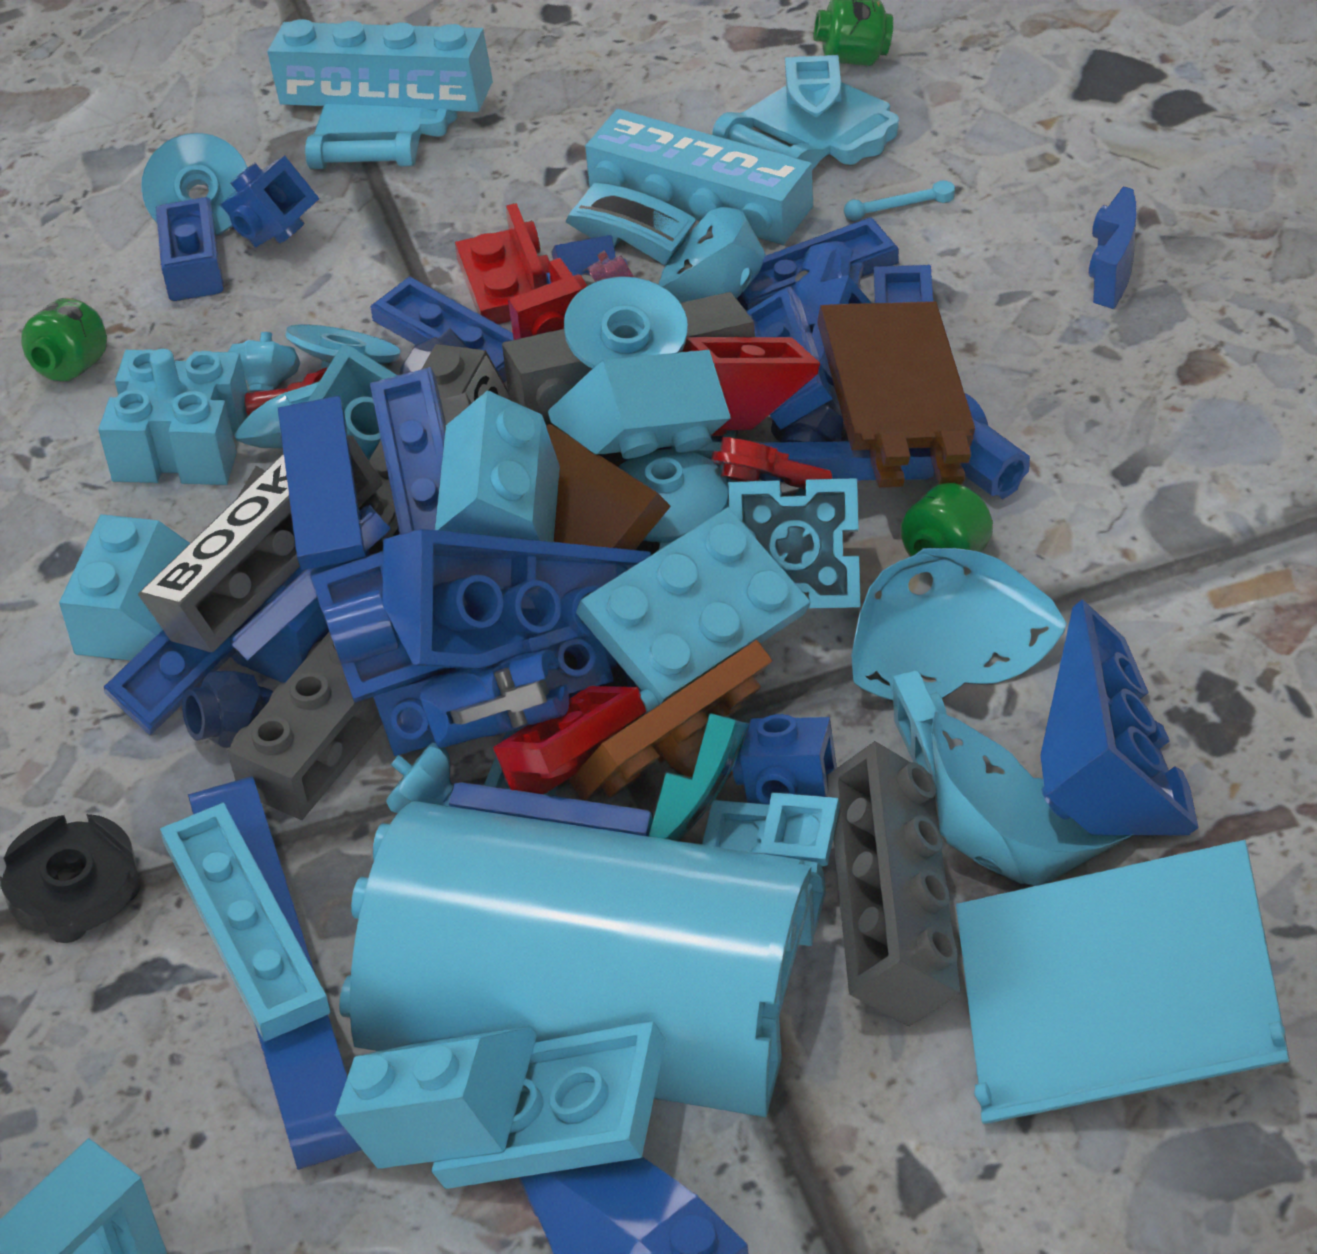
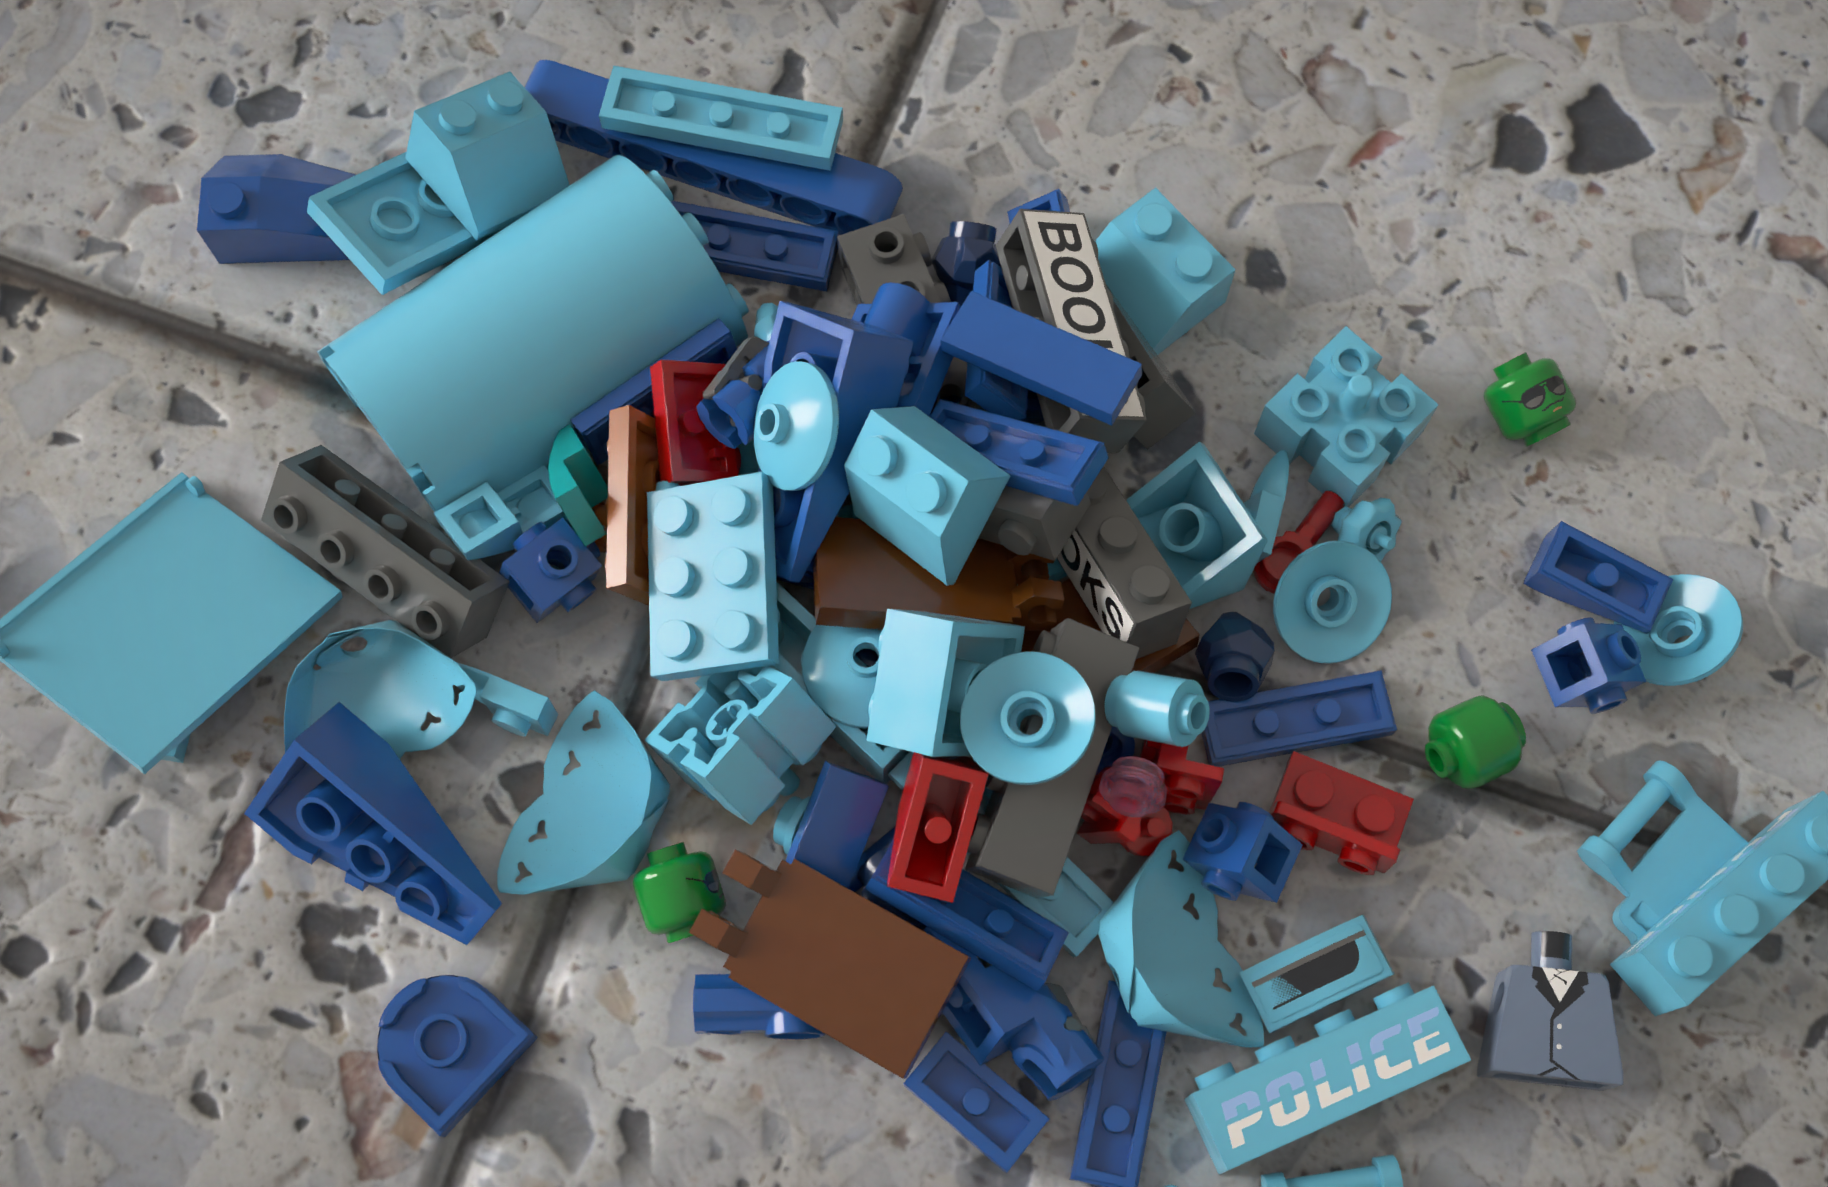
camera: 125 degrees right, 25 degrees up
(77, 904) = (900, 113): black plate -> none
(328, 864) = (766, 247): none -> blue tile
(383, 227) = (1475, 741): none -> green head
(501, 589) = (796, 426): none -> medium azure dish
(540, 288) = (1157, 707): none -> medium azure brick
(547, 110) = (1551, 1022): none -> sand blue torso
(747, 459) = (830, 739): red plate -> none
(1203, 594) = (447, 1046): none -> blue tile

